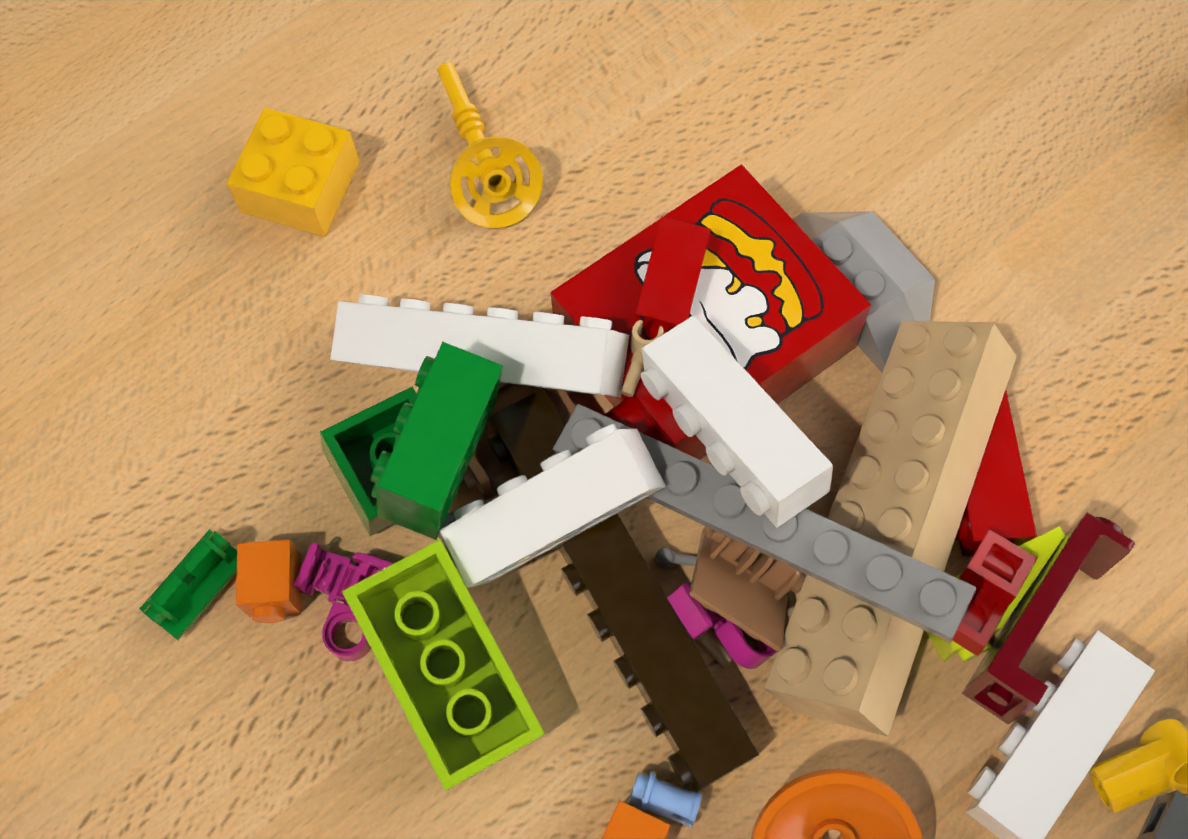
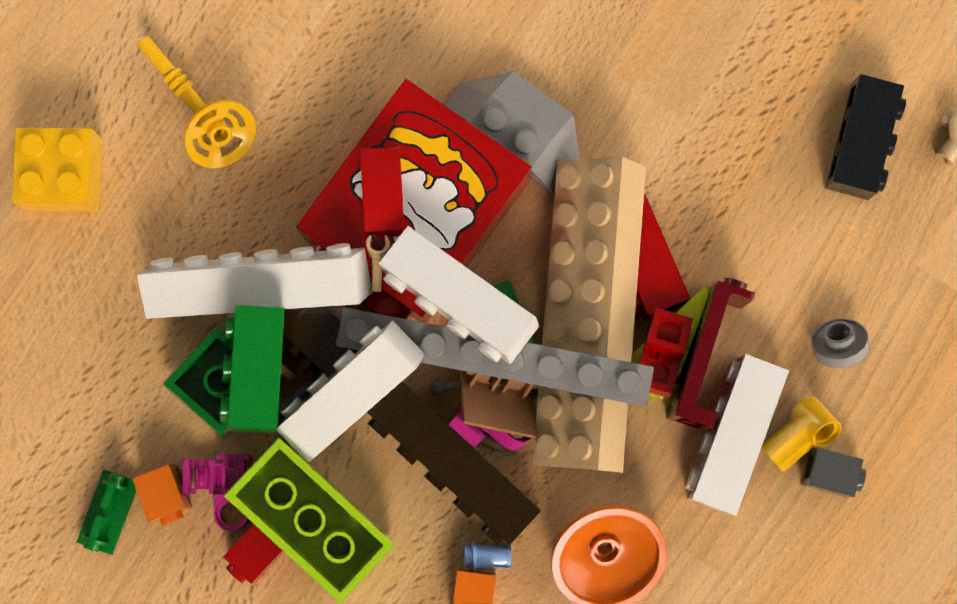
camera: 20 degrees left, 15 degrees up
(354, 694) = (252, 555): none -> red brick

